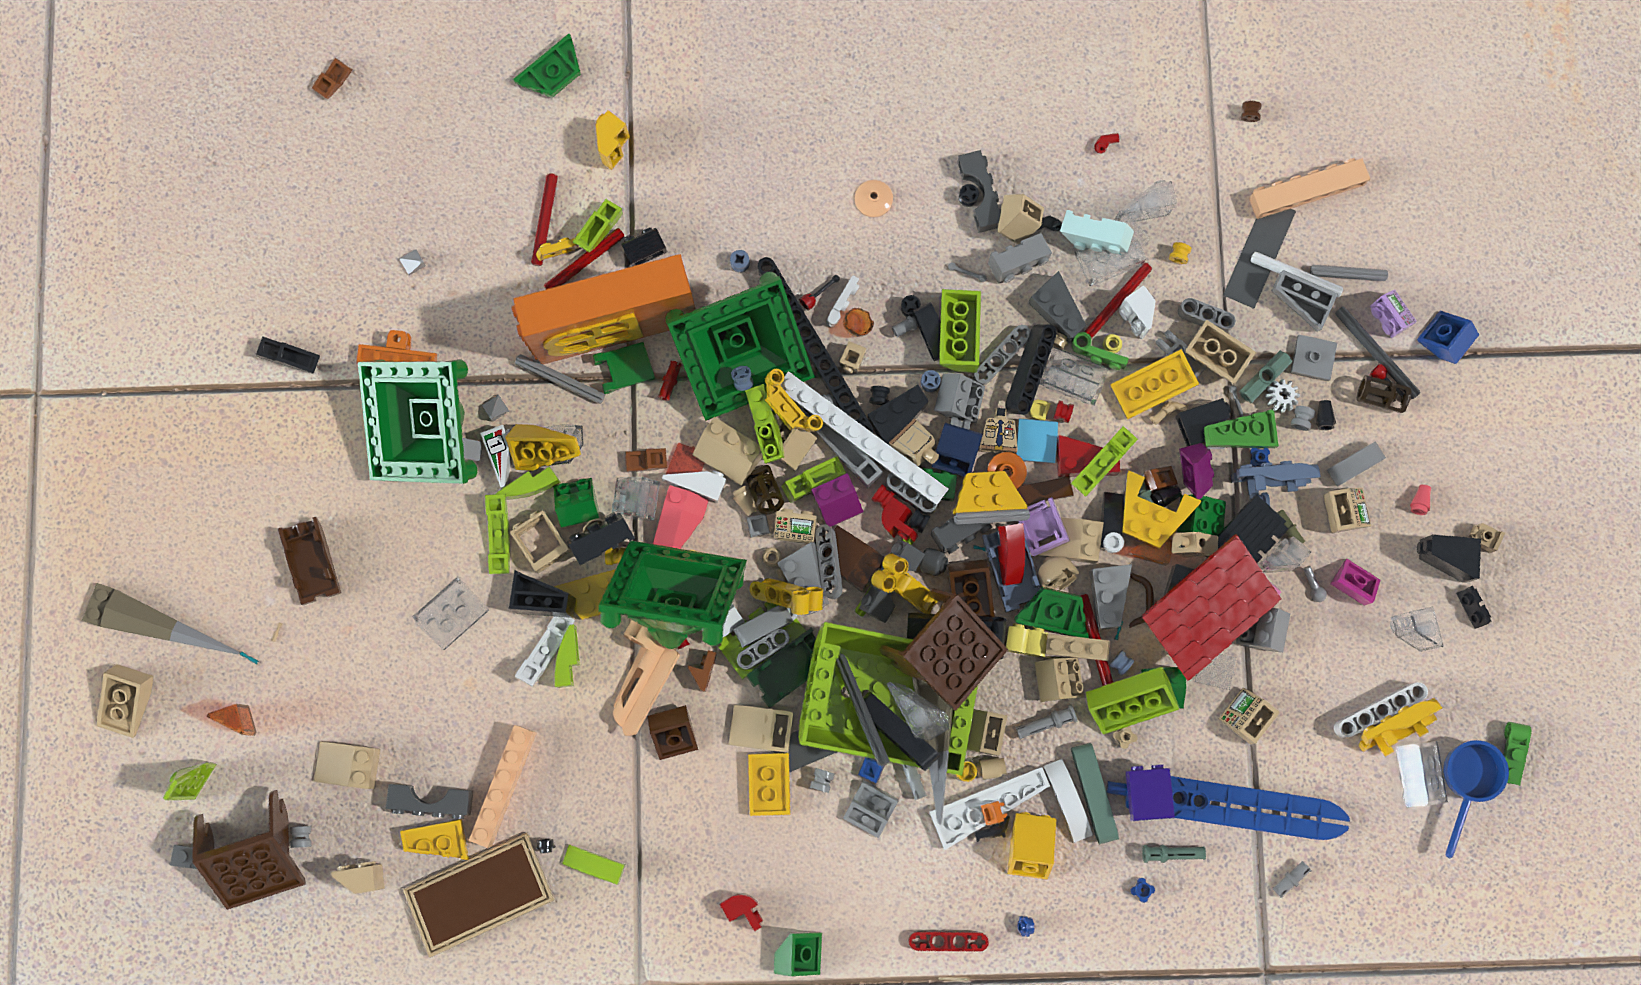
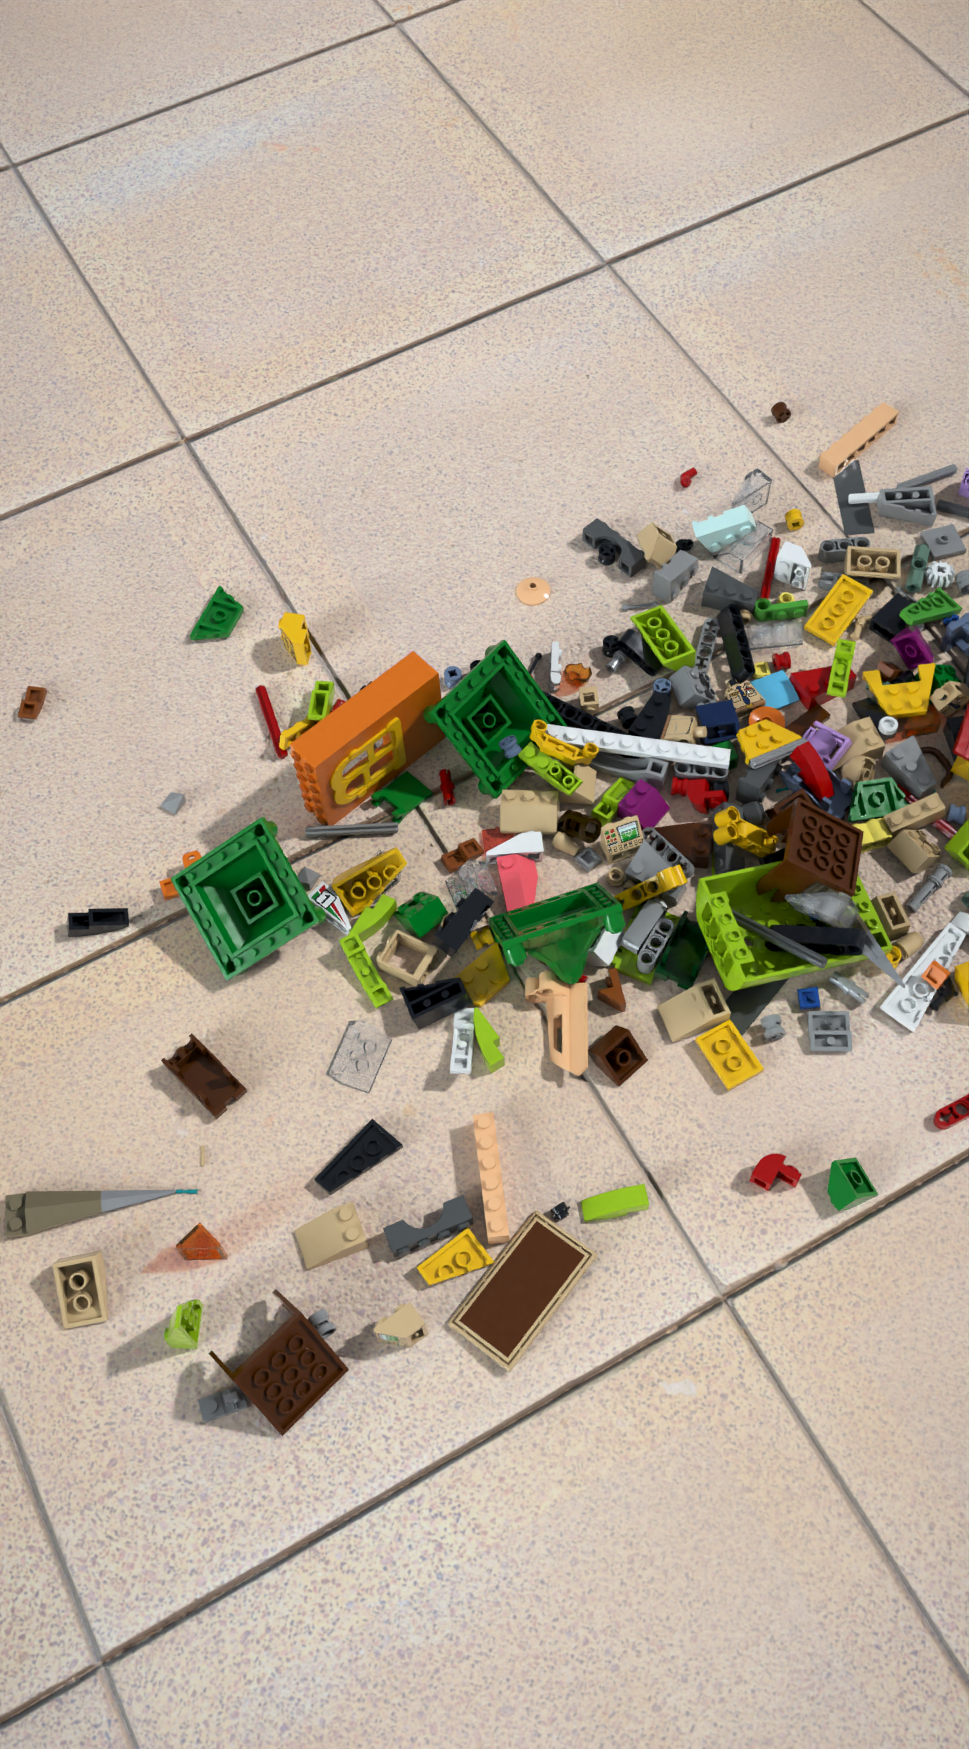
camera: 25 degrees left, 20 degrees down
(409, 704) = (361, 1154): none -> black wing

